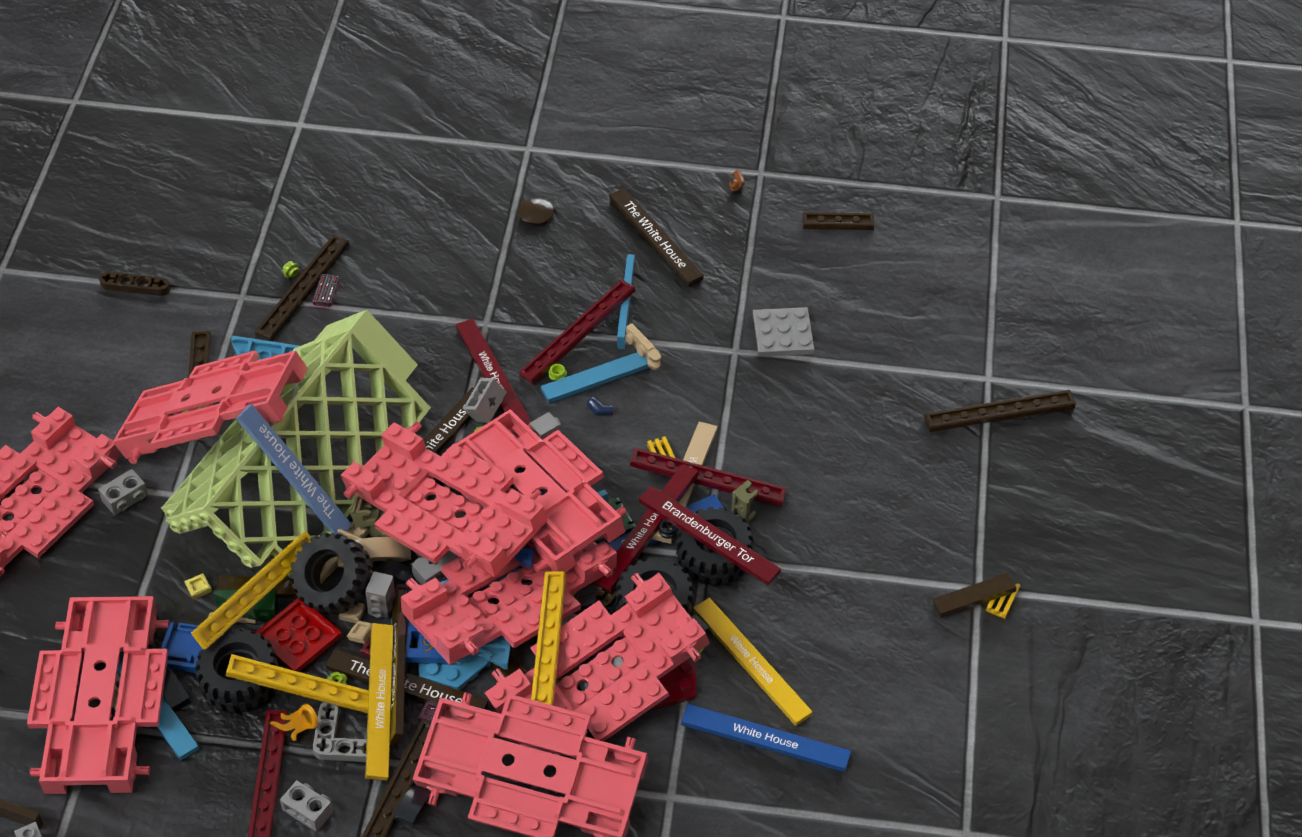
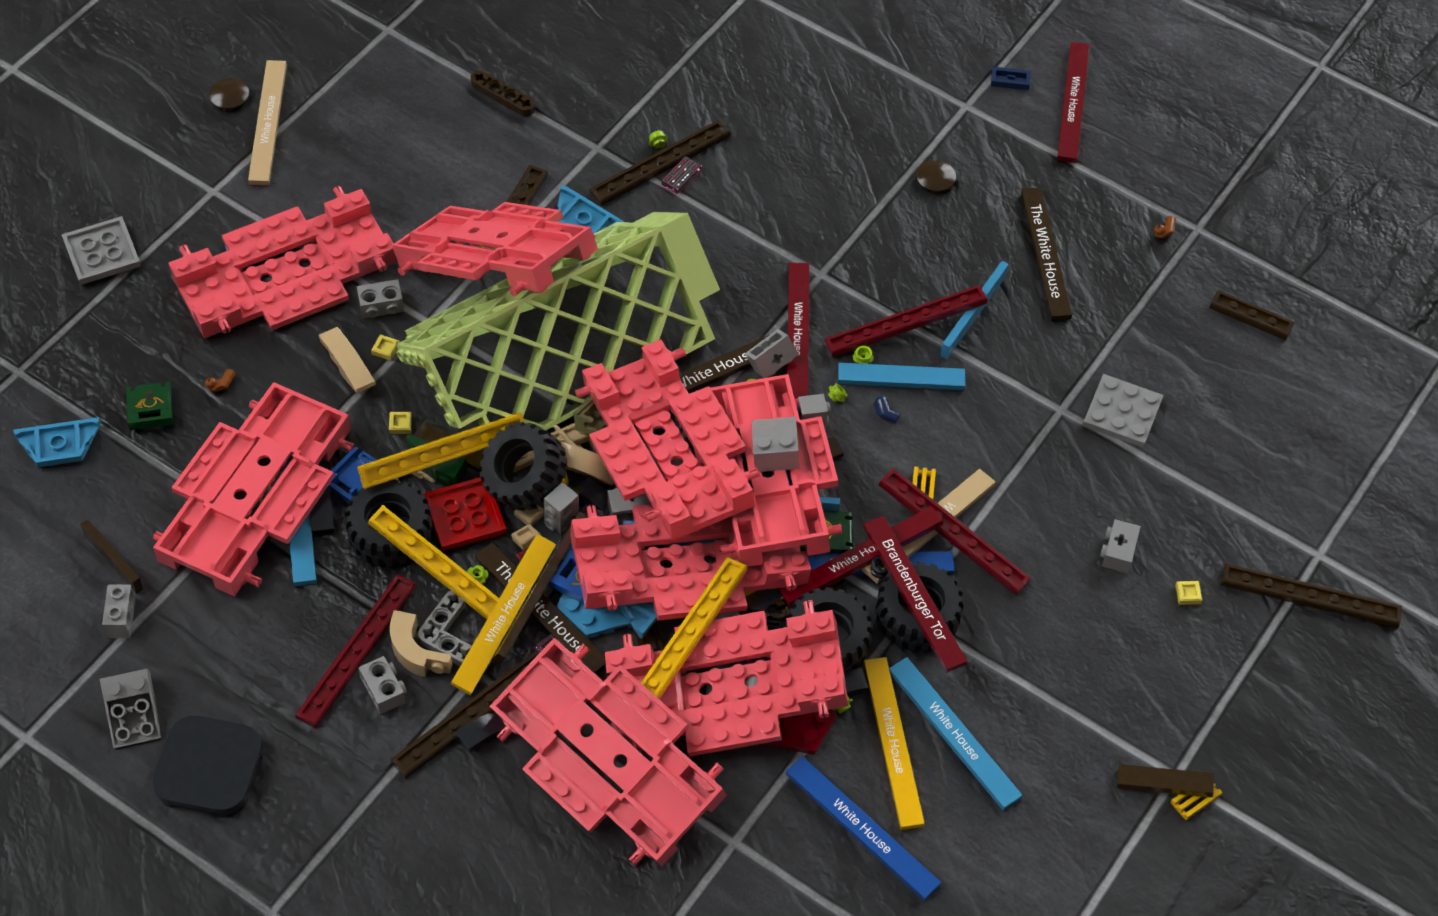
camera: 25 degrees right, 5 degrees up
(20, 619) = (218, 385): none -> dark orange arm
(124, 554) = (347, 360): none -> tan slope
(149, 530) = (385, 347): none -> light yellow tile
(293, 470) = (533, 347): medium blue tile -> none
(300, 720) = (420, 598): light orange piece -> none
(316, 769) = (409, 654): none -> tan arch
(525, 557) = (719, 532): blue tile -> none
(536, 465) = (775, 444): none -> light grey slope
(551, 114) = (1010, 81): none -> dark blue tile
(554, 409) = (837, 393): none -> lime plate
(611, 114) = (1073, 102): none -> dark red tile
(643, 346) = (963, 365): tan hinge -> none
(742, 501) = (972, 574): olive hinge -> none
(795, 632) = (955, 734): none -> dark azure tile
(840, 434) = (1120, 547): none -> light grey brick
(910, 447) = (1188, 592): none -> light yellow tile

